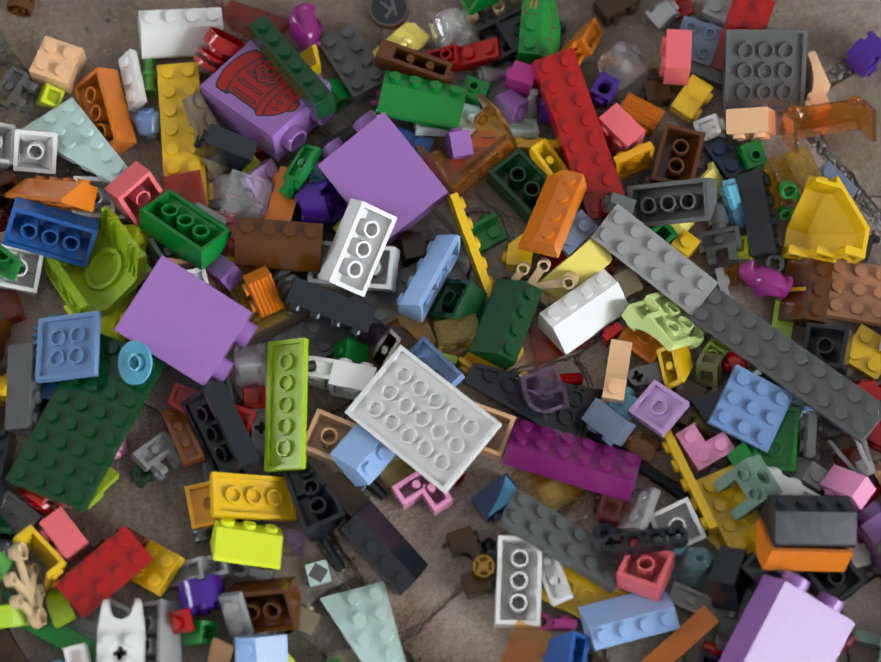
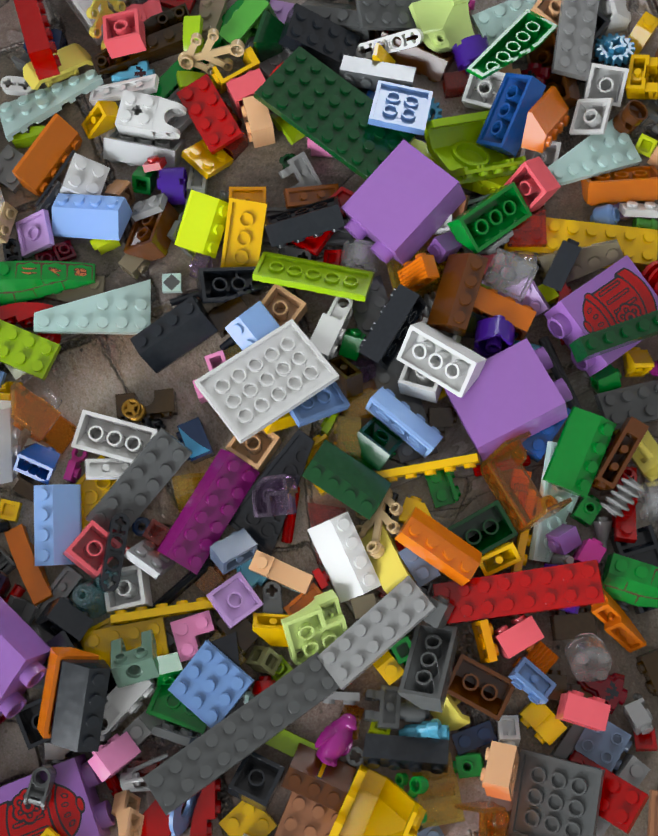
camera: 110 degrees right, 5 degrees up
(26, 112) = (630, 117): none -> reddish brown wheel
(101, 516) = (257, 122): none -> light nougat brick
(135, 362) = (371, 153): medium azure dish -> none
(299, 169) = (527, 324): green hinge -> none
(458, 54) = (623, 496): none -> light grey piece
(459, 144) = (529, 476): medium lavender brick -> none
(607, 83) = (570, 633): dark purple brick -> none
(649, 44) = (608, 689): none -> dark red rock
(660, 108) = (532, 681): none -> medium blue bracket

